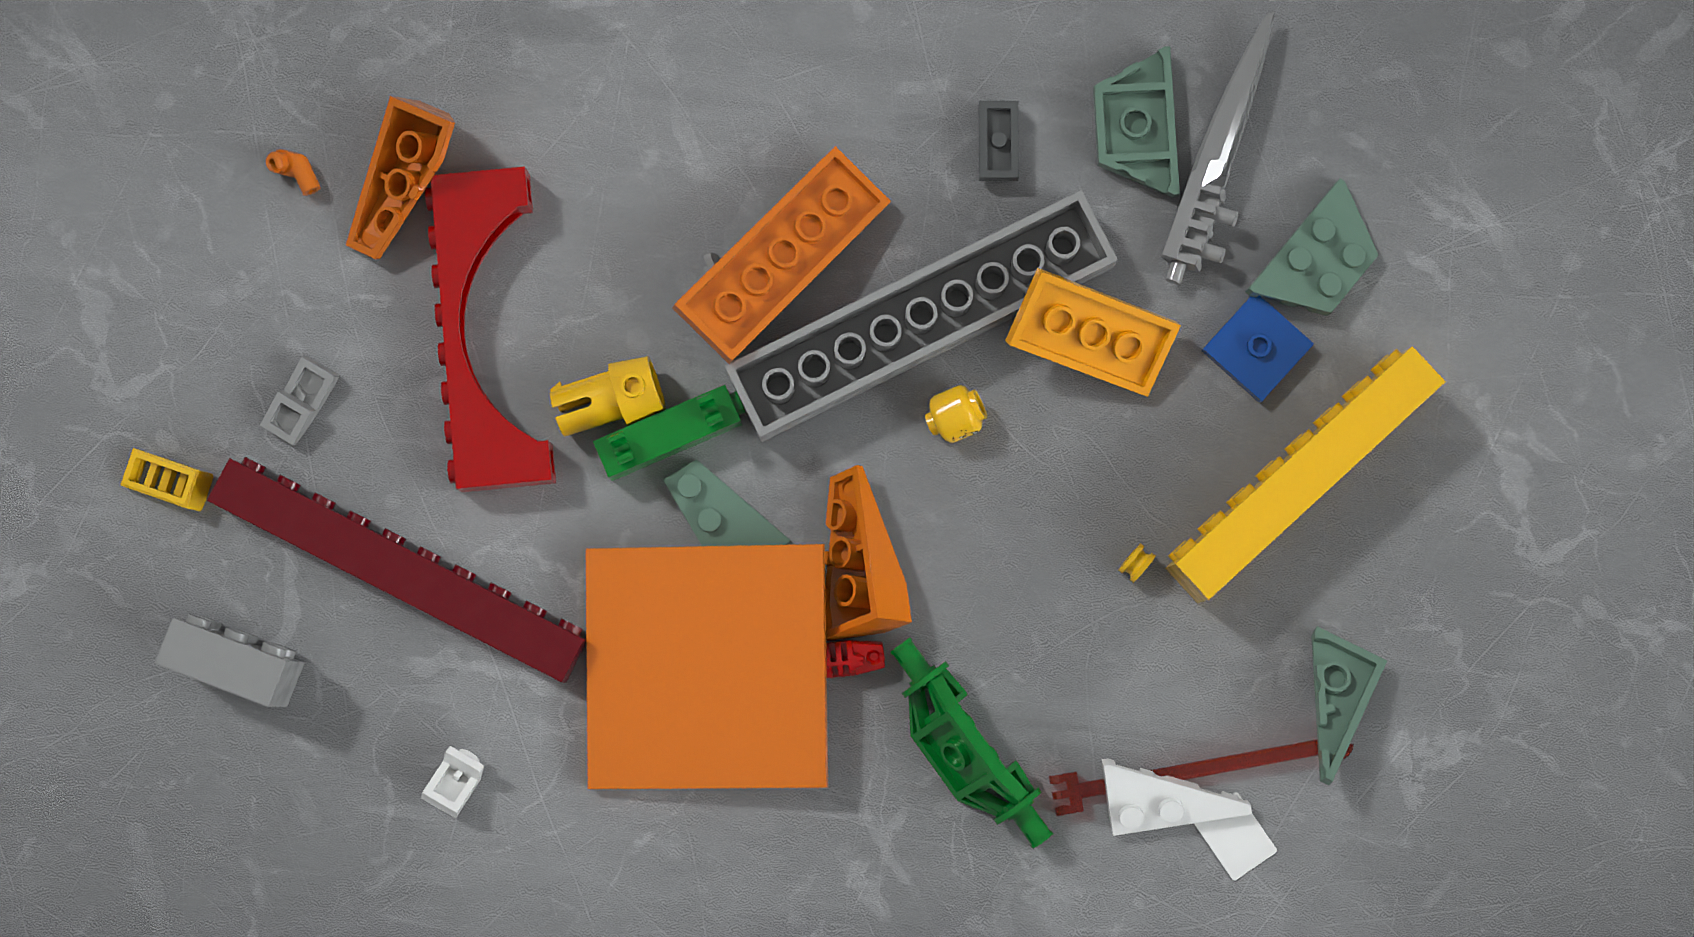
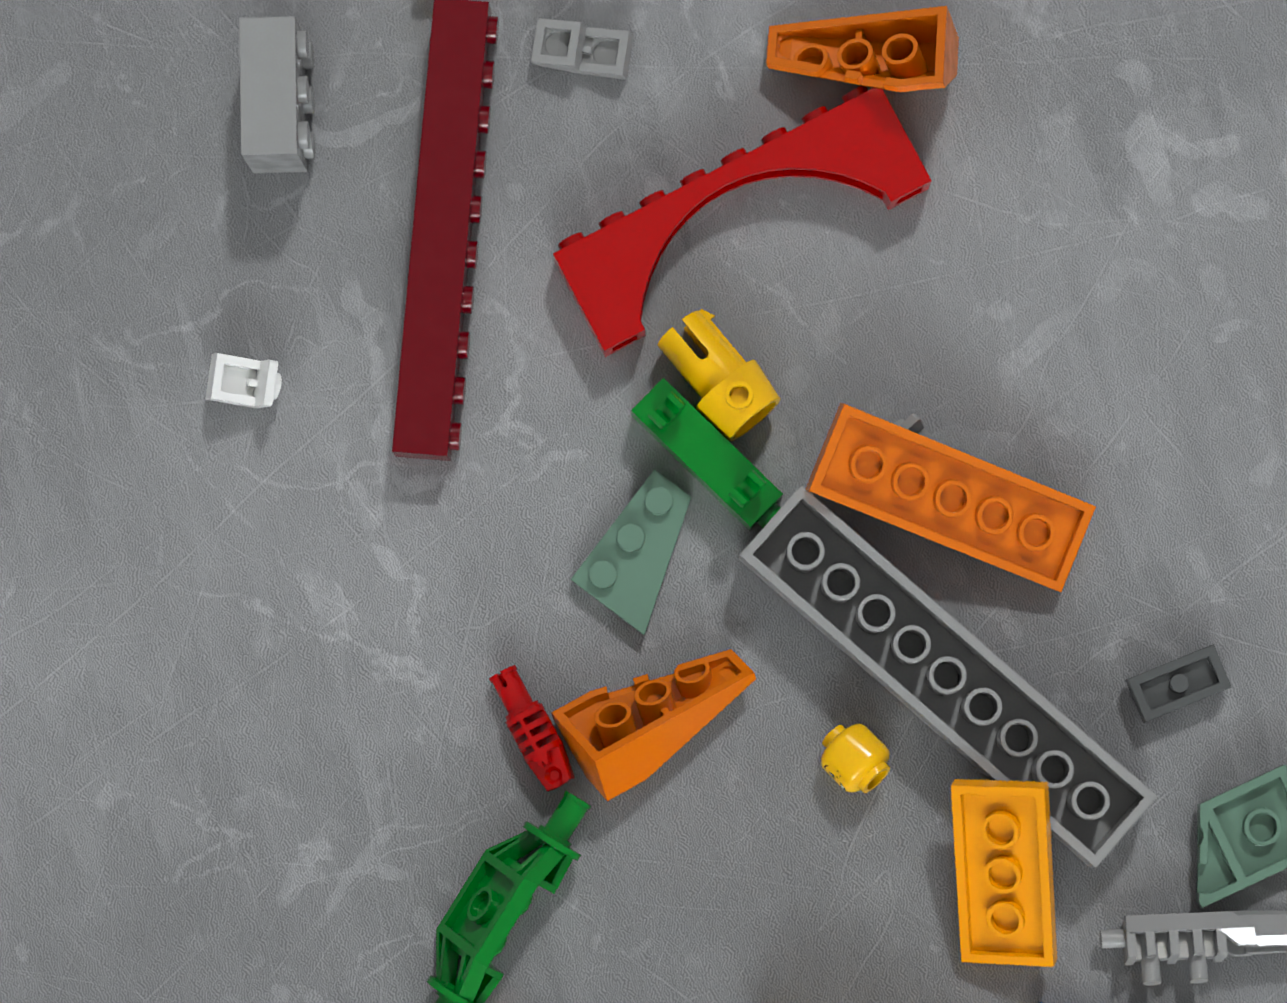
camera: 75 degrees right, 0 degrees up
(706, 667) = (471, 600): orange tile -> none

